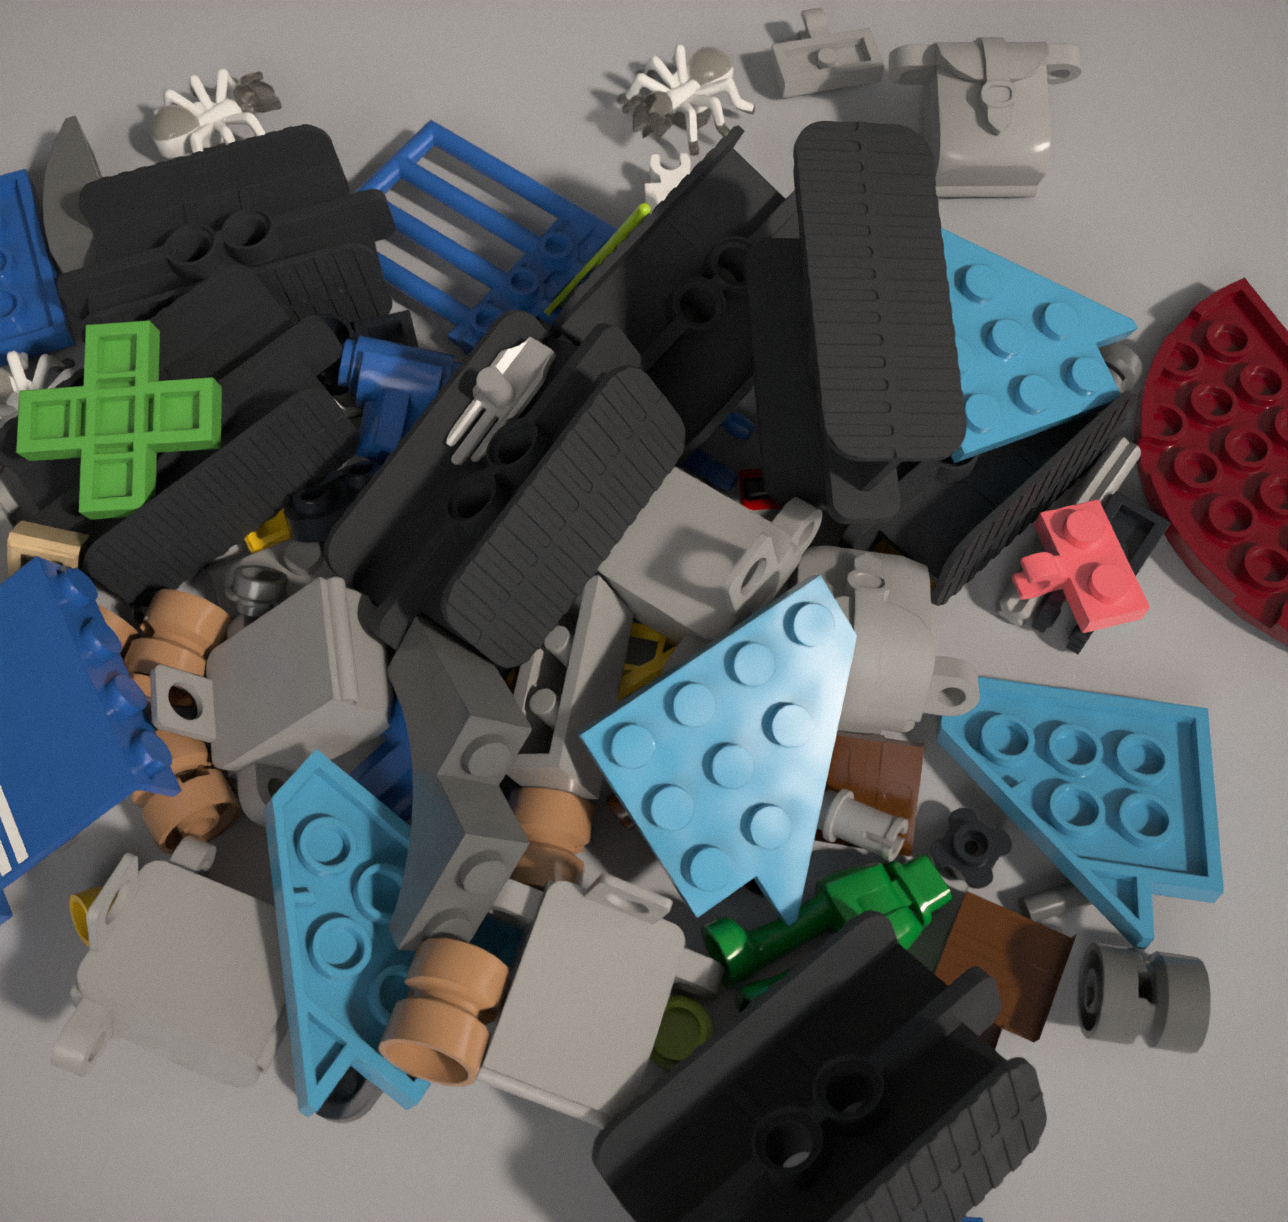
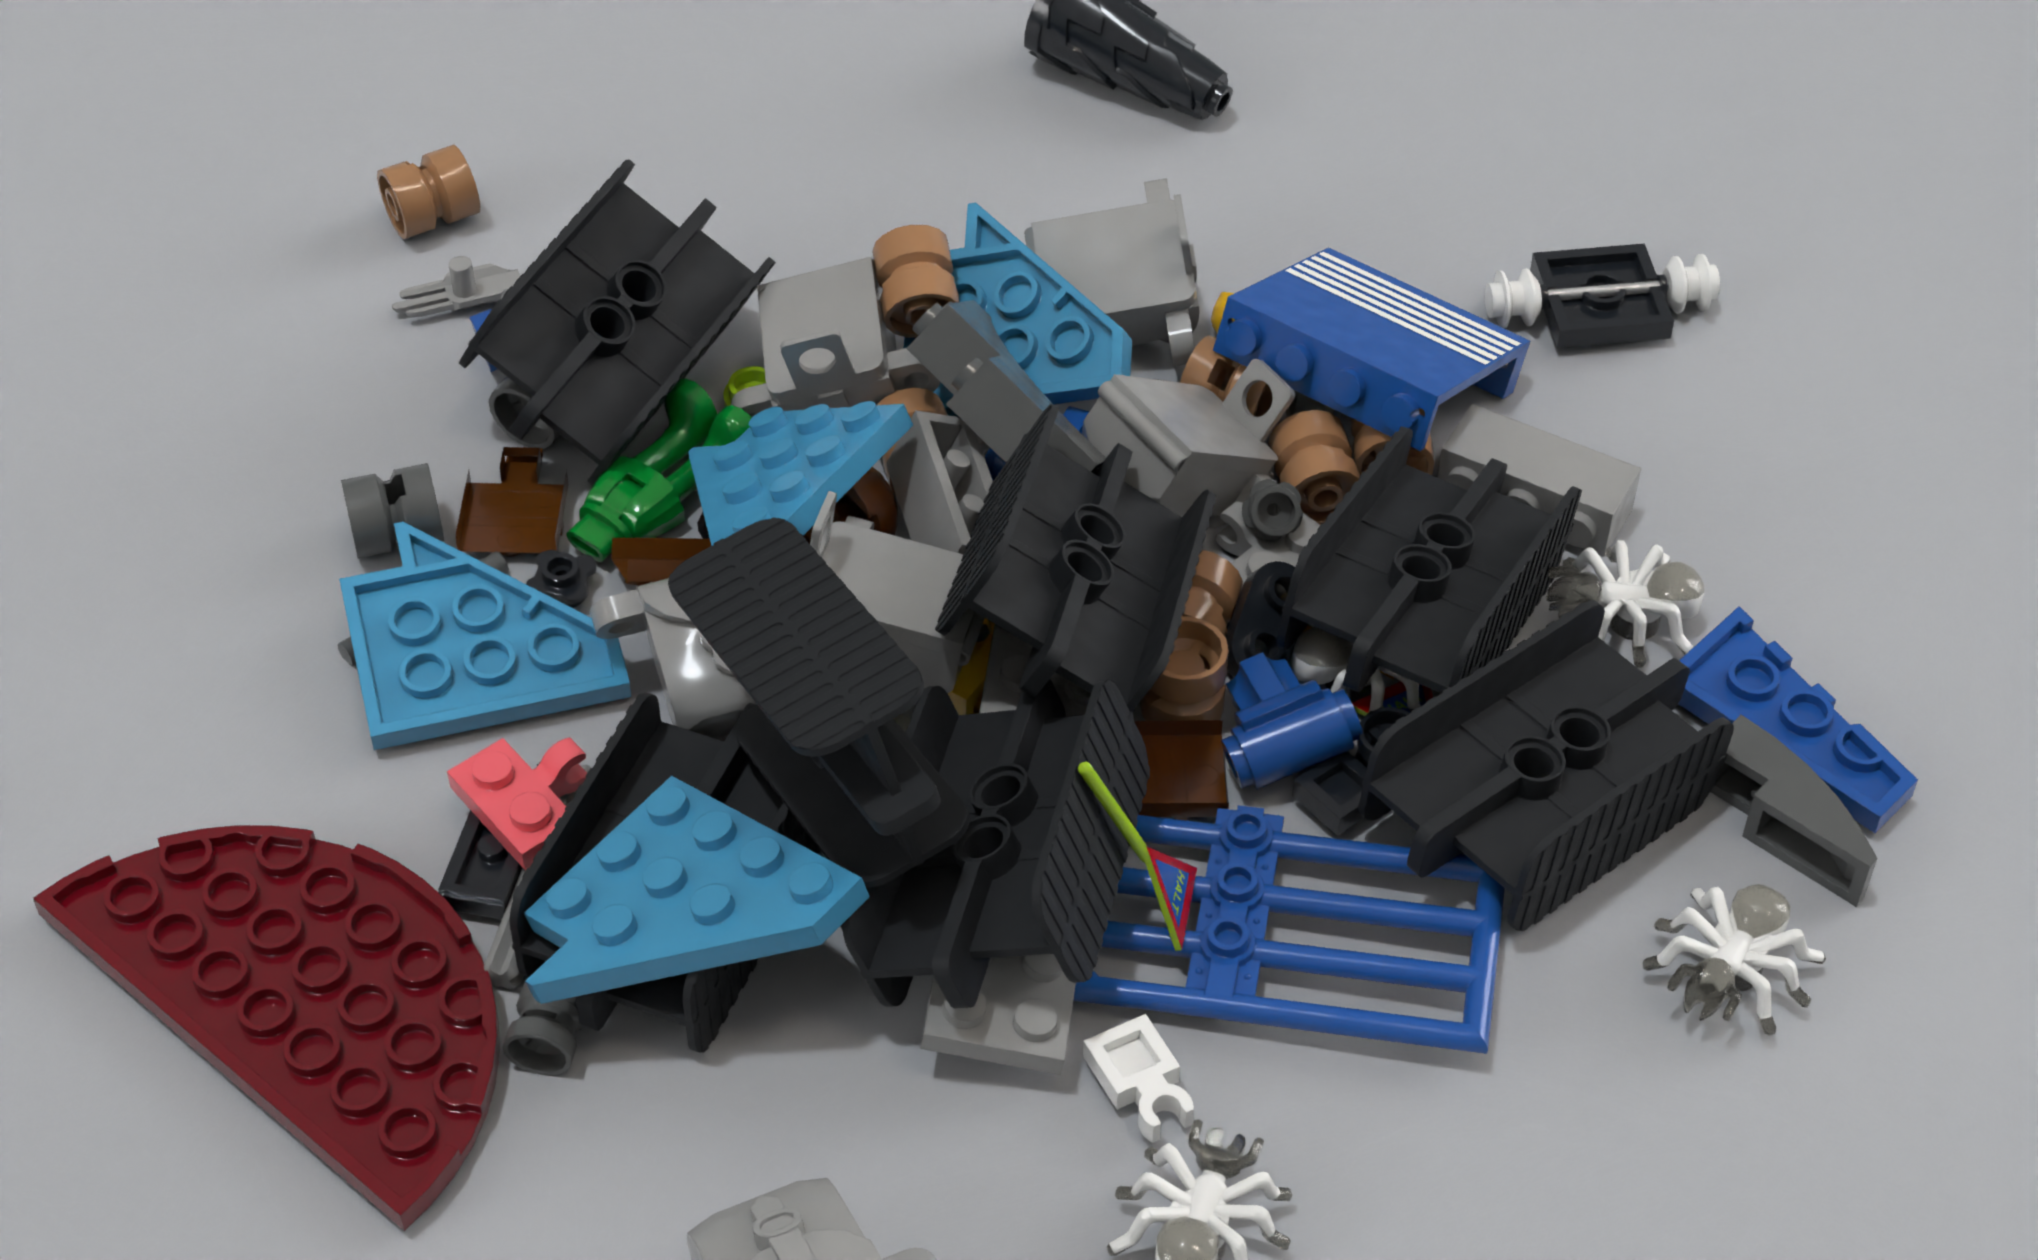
camera: 155 degrees right, 15 degrees down
(47, 542) = (1461, 445): tan slope -> none
(119, 419) = (1480, 510): bright green plate -> none
(503, 393) = (1127, 629): light grey piece -> none
(860, 824) = (661, 535): light grey pin -> none

